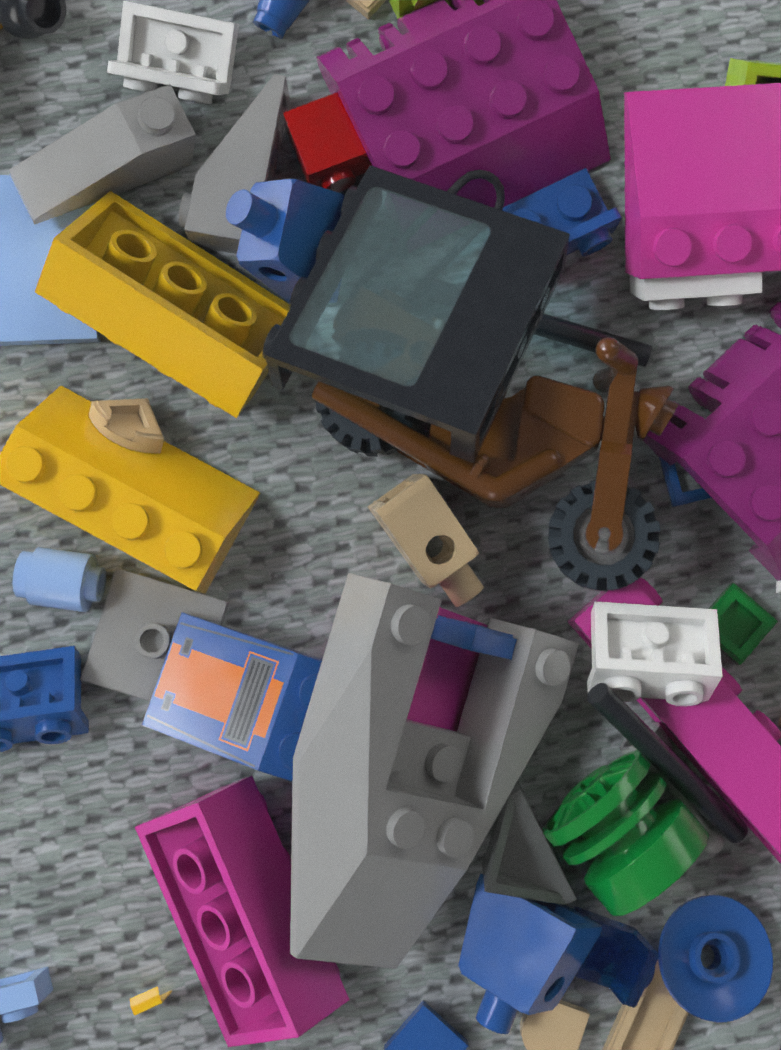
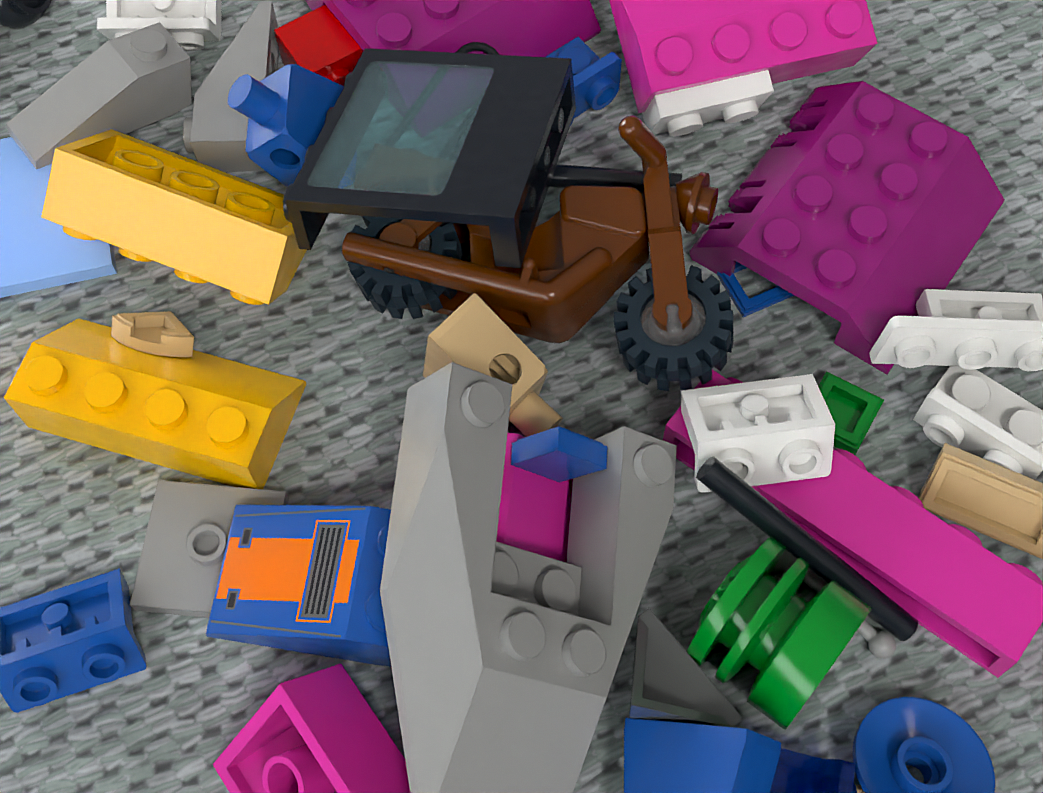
camera: 10 degrees left, 20 degrees down
(59, 579) = (94, 501): light blue brick -> none

